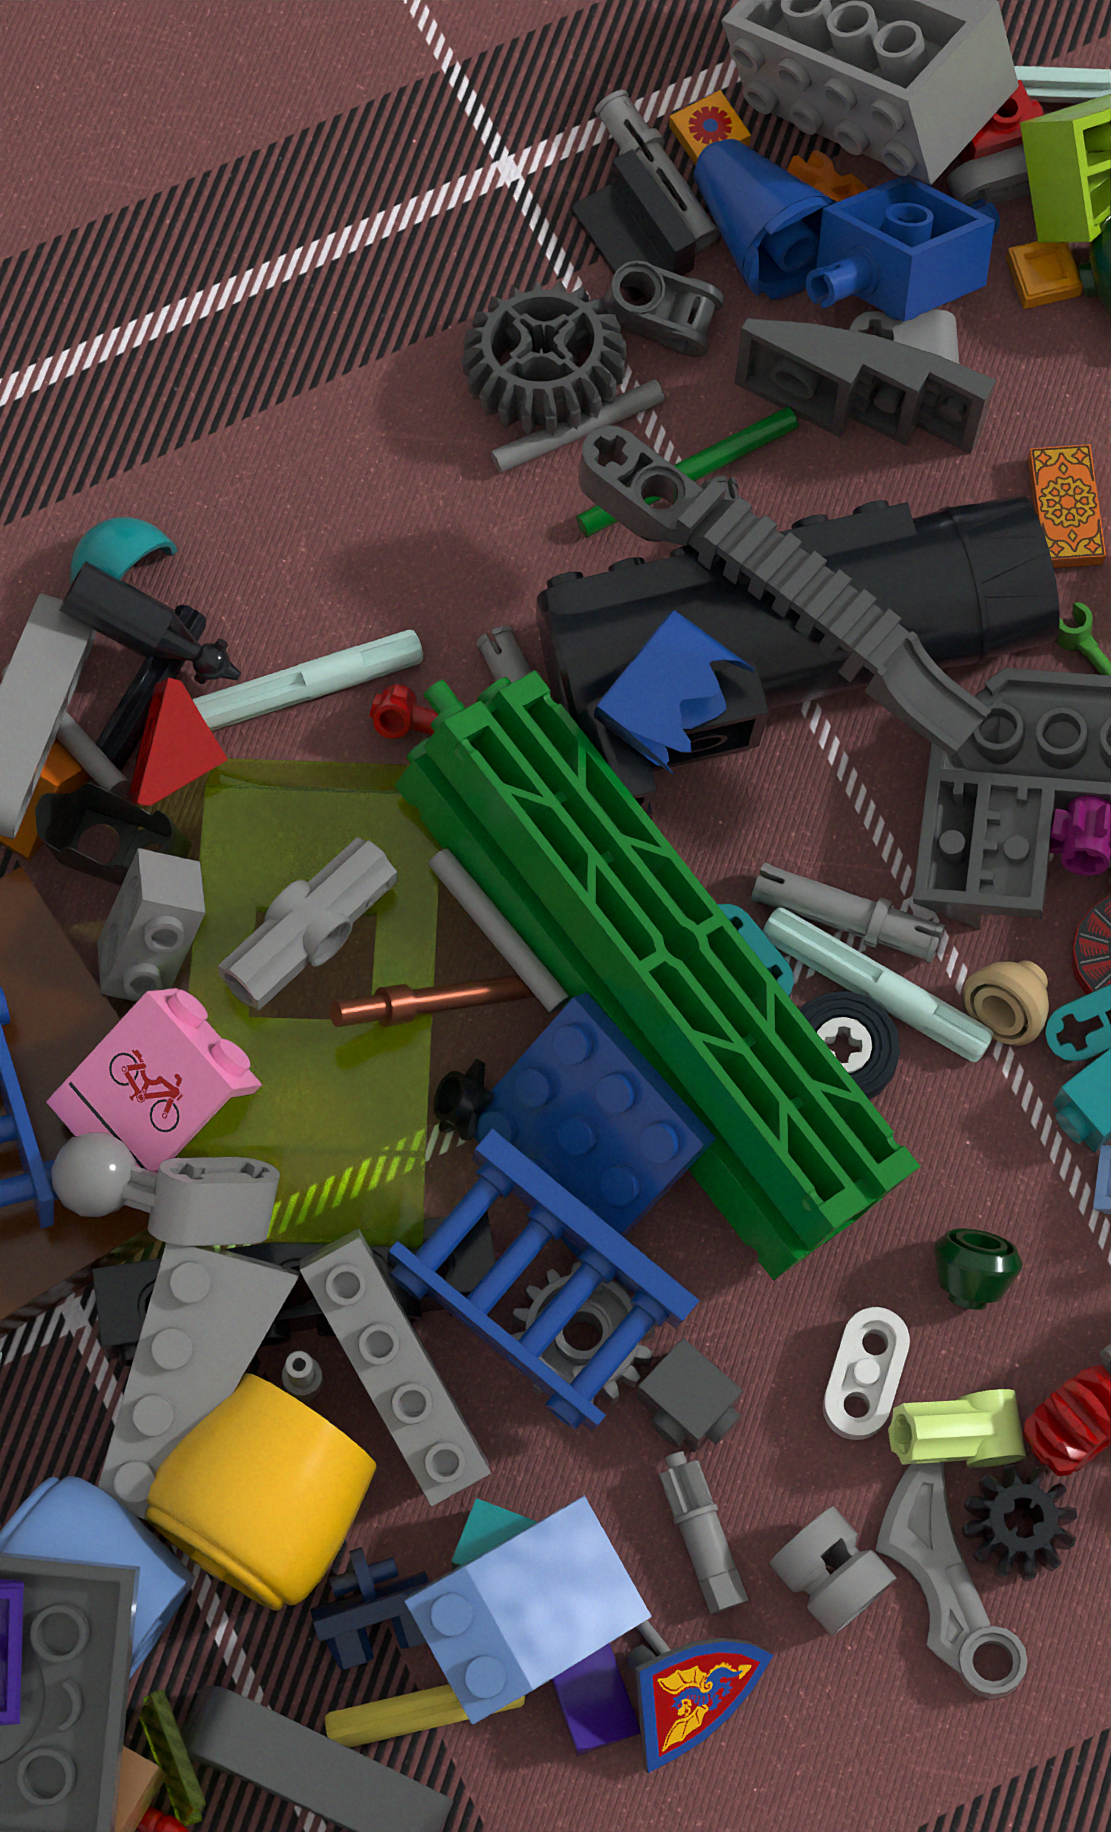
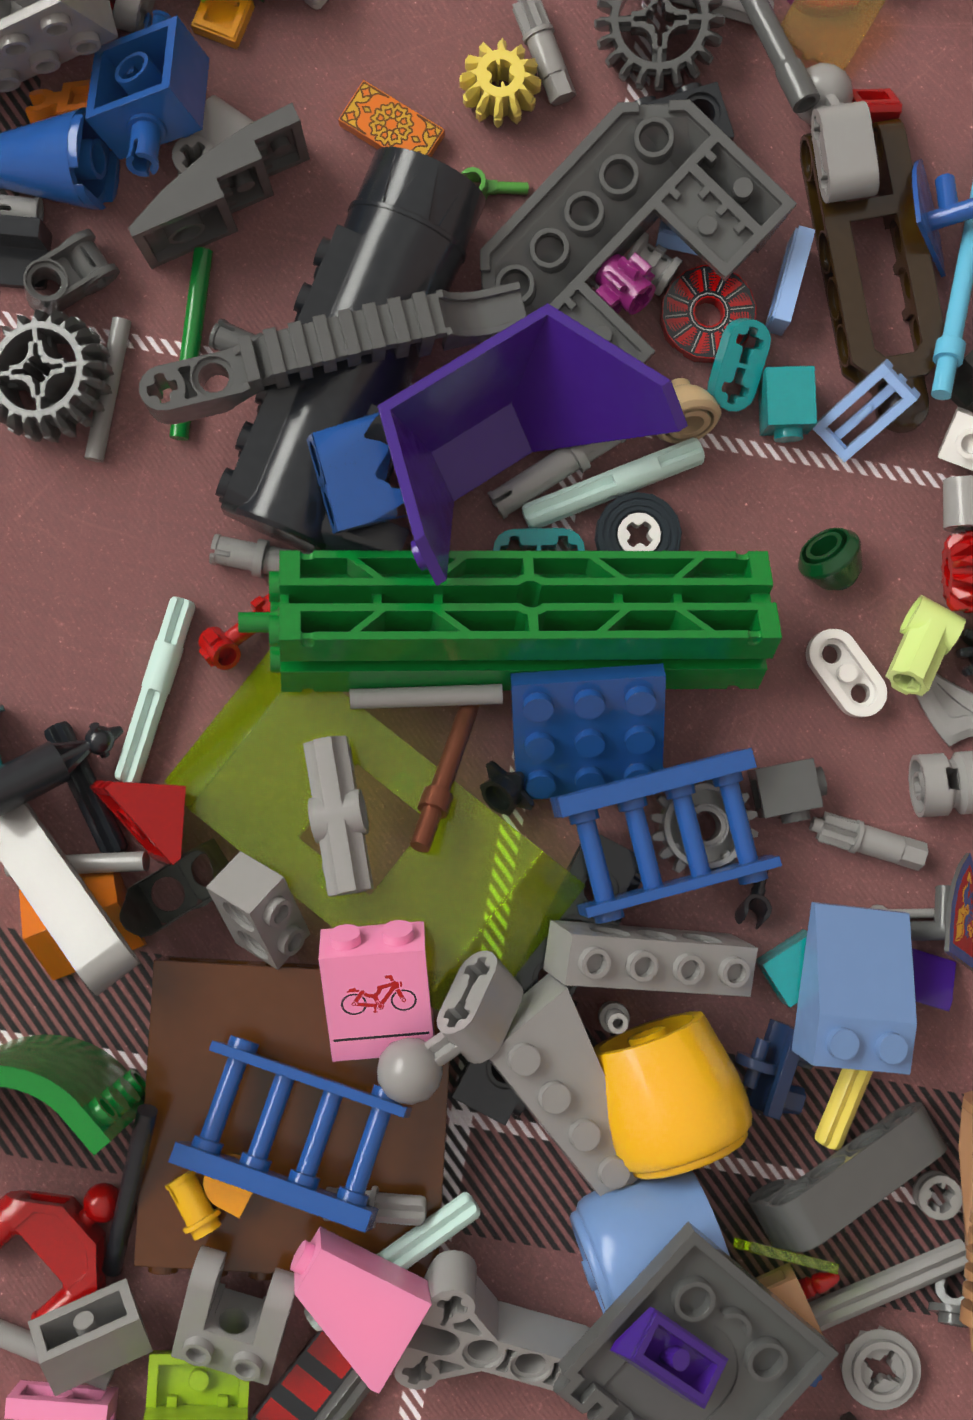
camera: 60 degrees left, 15 degrees up
(544, 1454) = (757, 903): none -> black hand
(842, 789) = (510, 396): none -> dark purple piece

